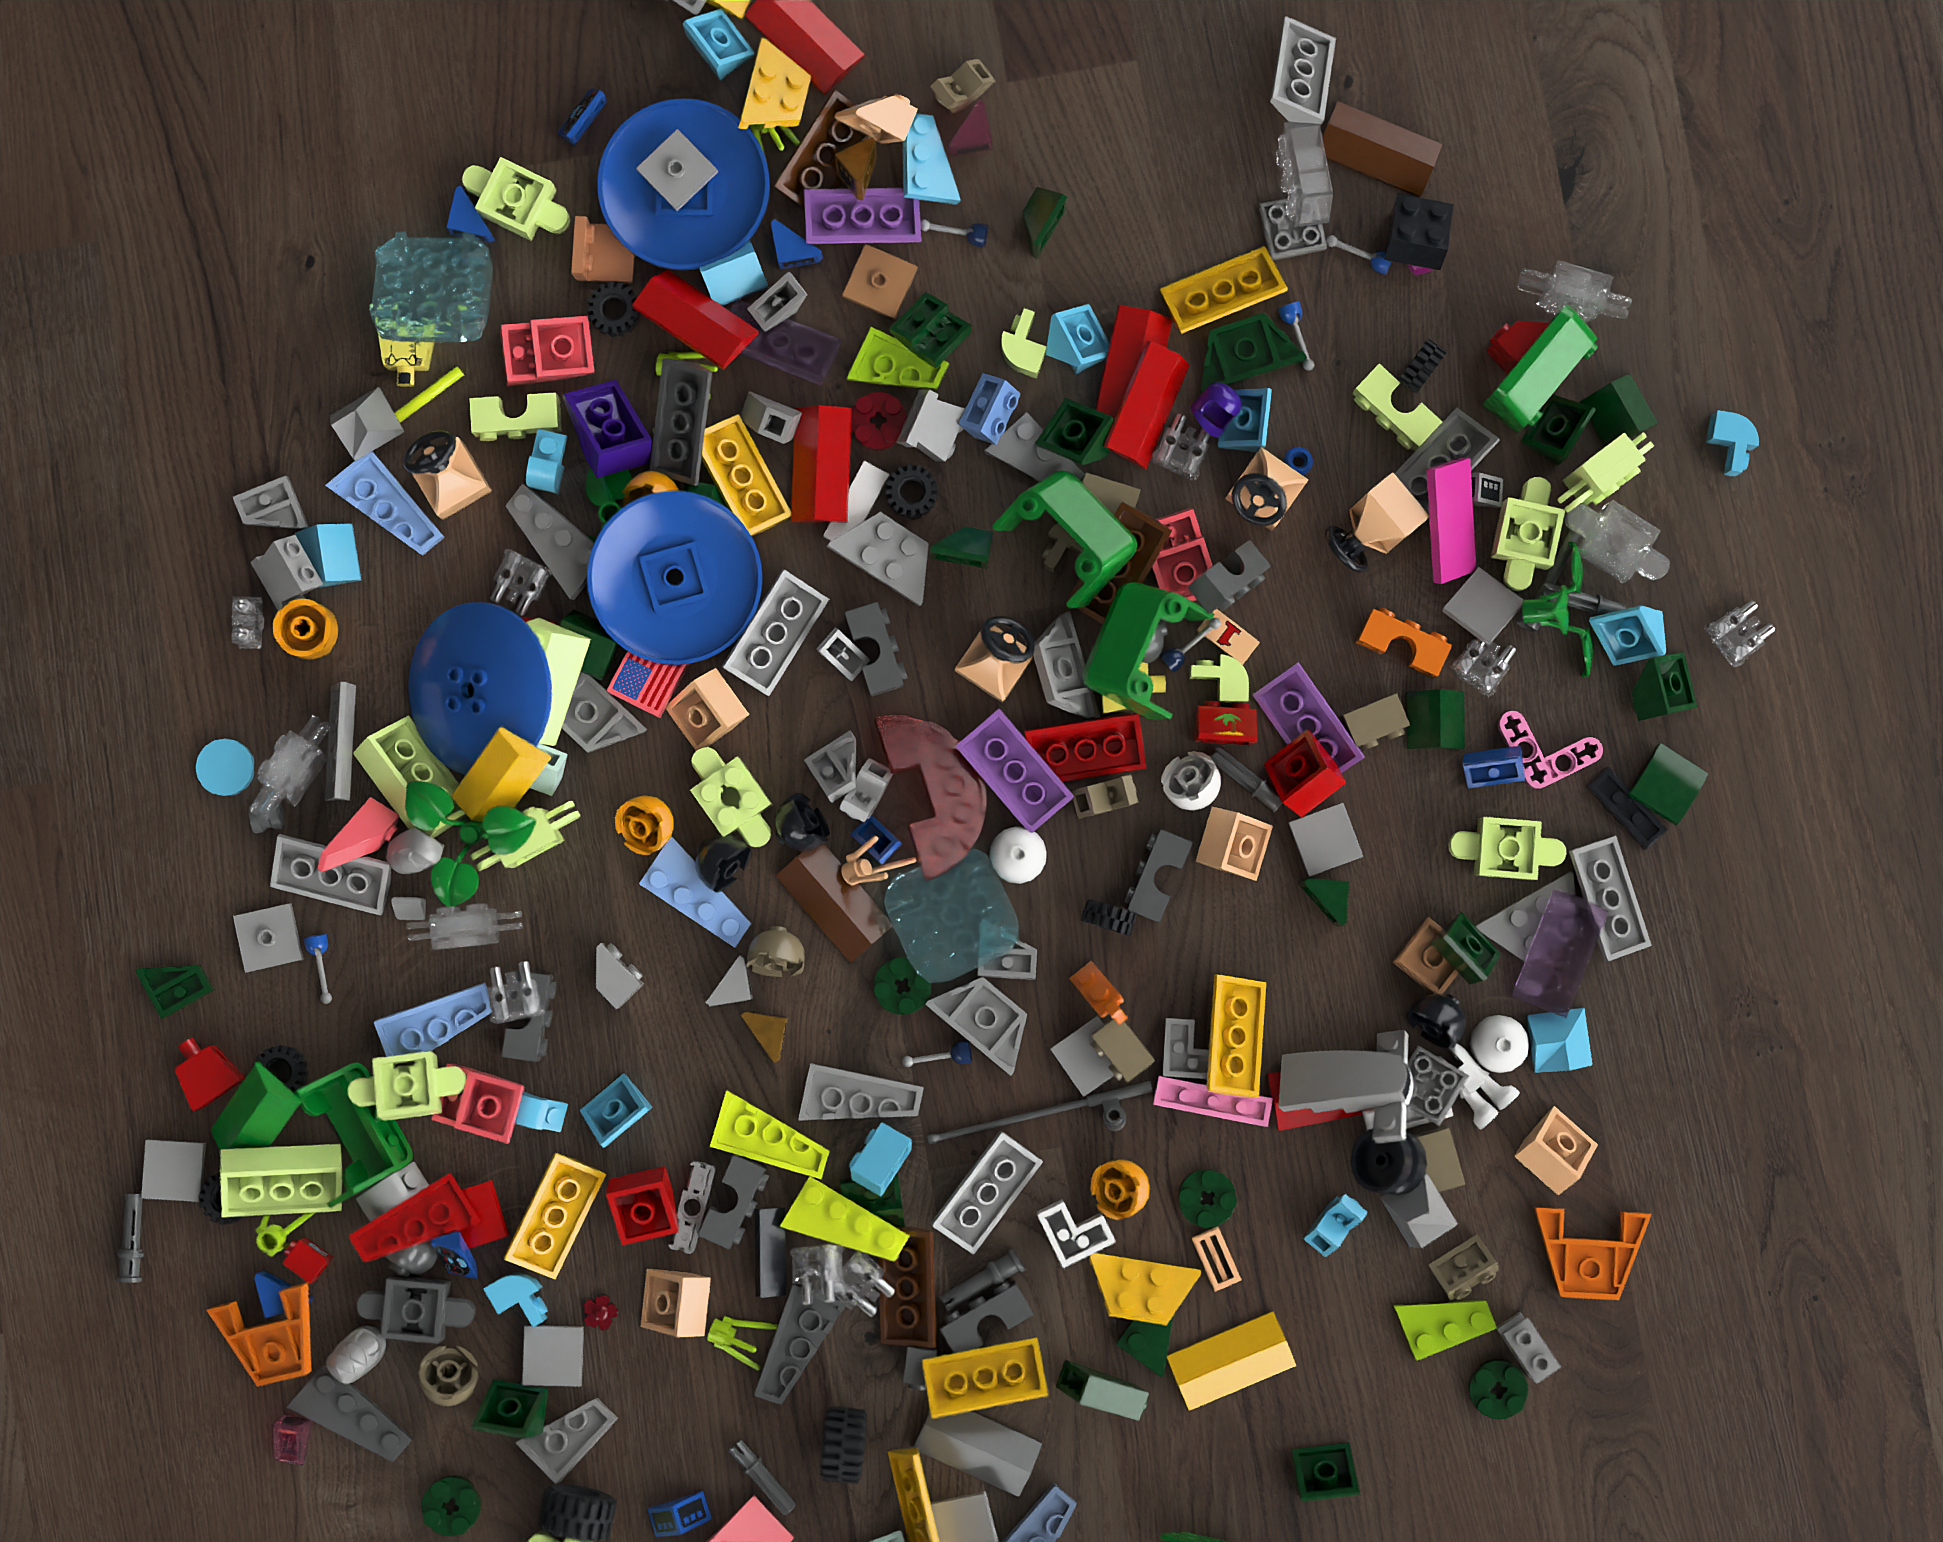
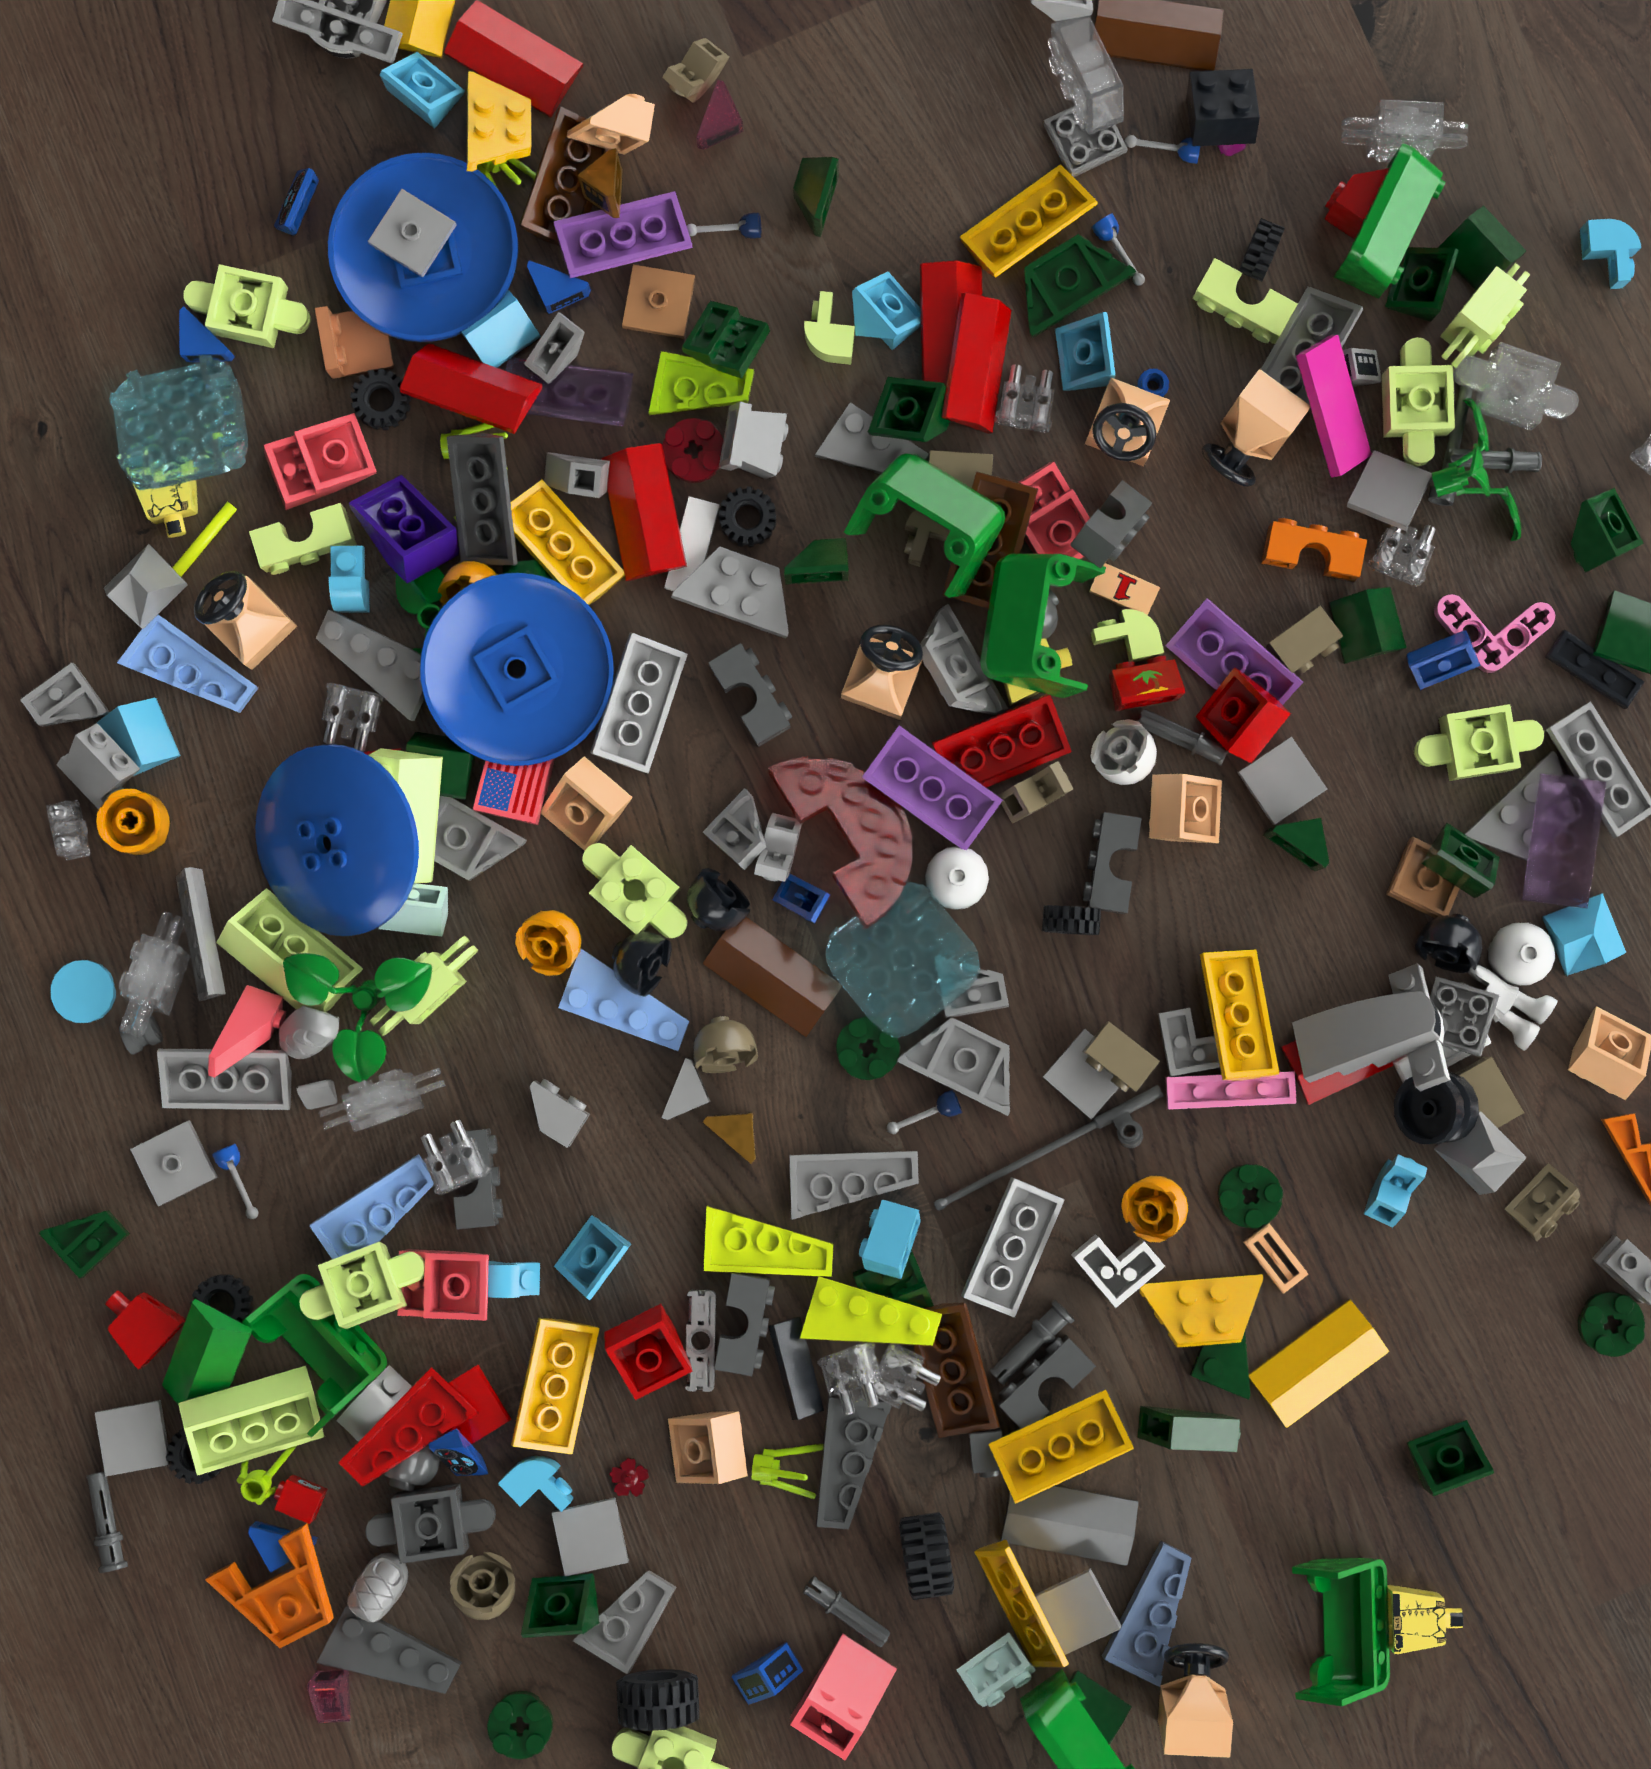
camera: 10 degrees left, 0 degrees up
(499, 775) = (380, 926): yellow slope -> none
(843, 654) = (717, 708): light grey slope -> none
(860, 870) = (792, 934): light nougat plant -> none
(926, 165) = (677, 164): medium azure wing -> none
(989, 408) = (810, 407): medium blue brick -> none
(1099, 992) = (1081, 1003): orange hinge -> none
(1175, 657) = (1072, 625): hinge -> none
(1219, 404) = (1052, 347): dark purple helmet -> none
(1443, 1325) = (1535, 1270): lime wing -> none
(1631, 634) = (1555, 481): medium azure slope -> none

